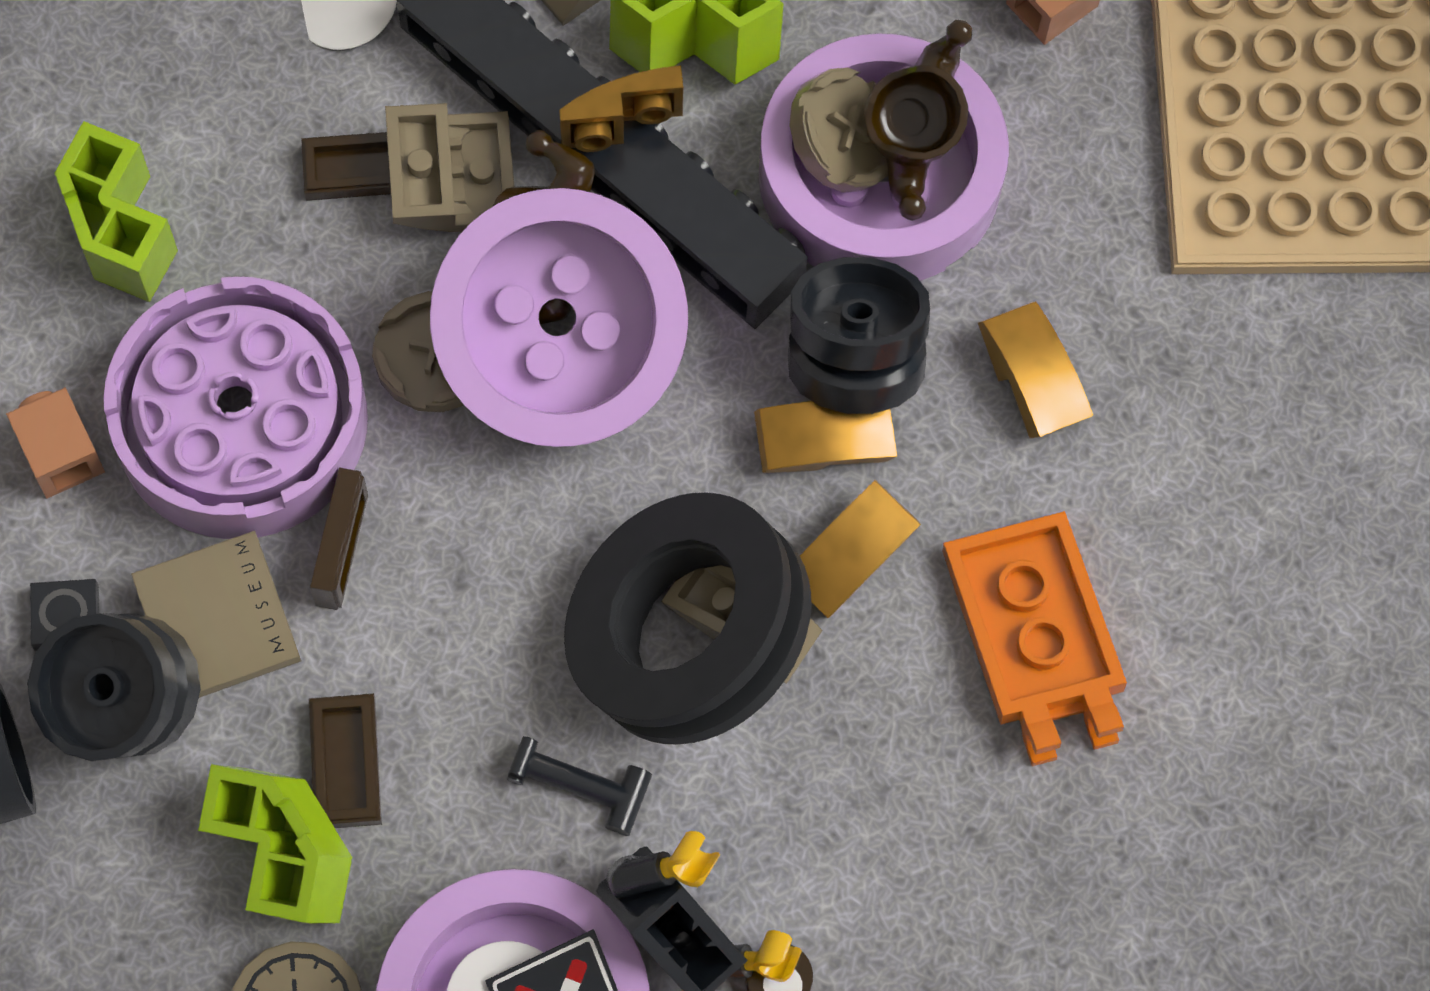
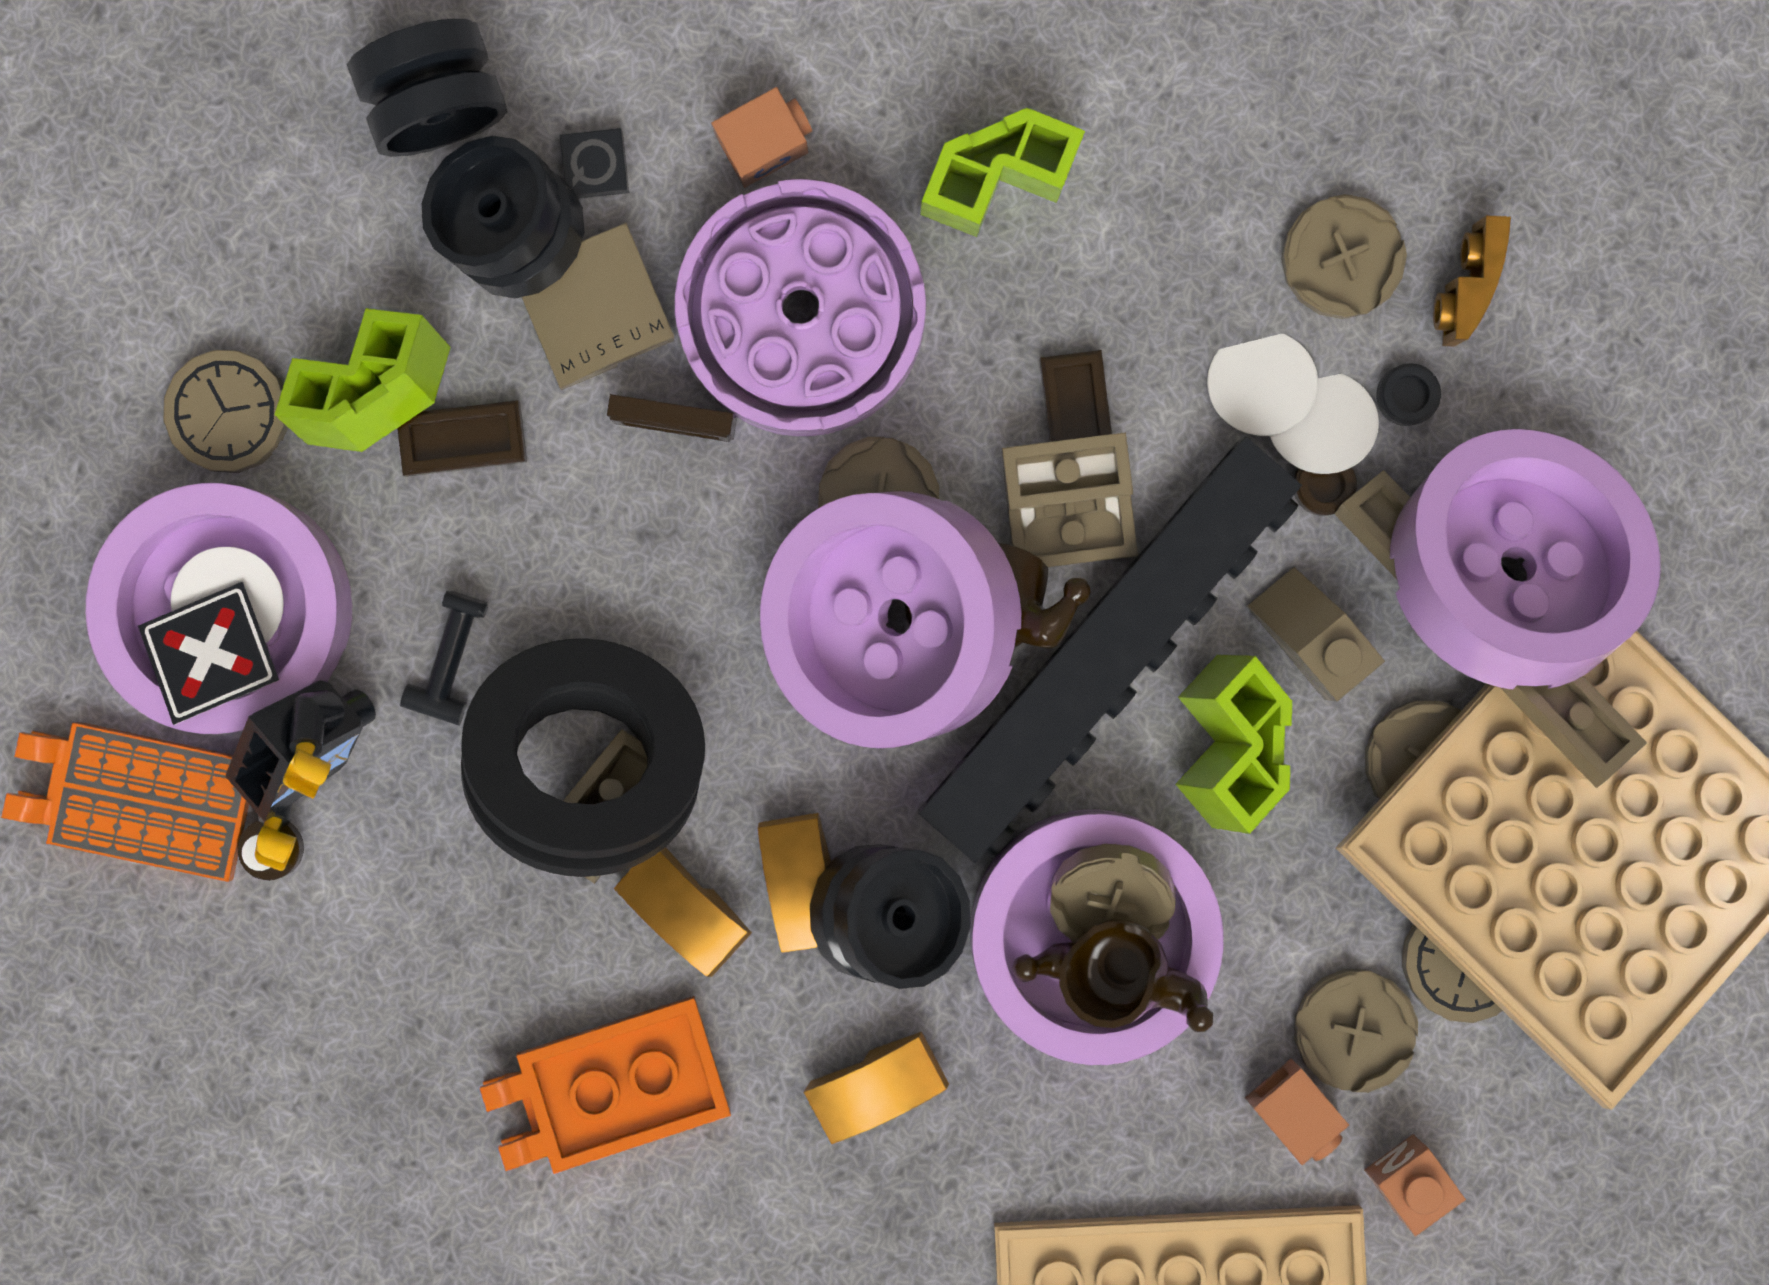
camera: 95 degrees right, 20 degrees up
(598, 116) = (1109, 654): pearl gold slope -> none

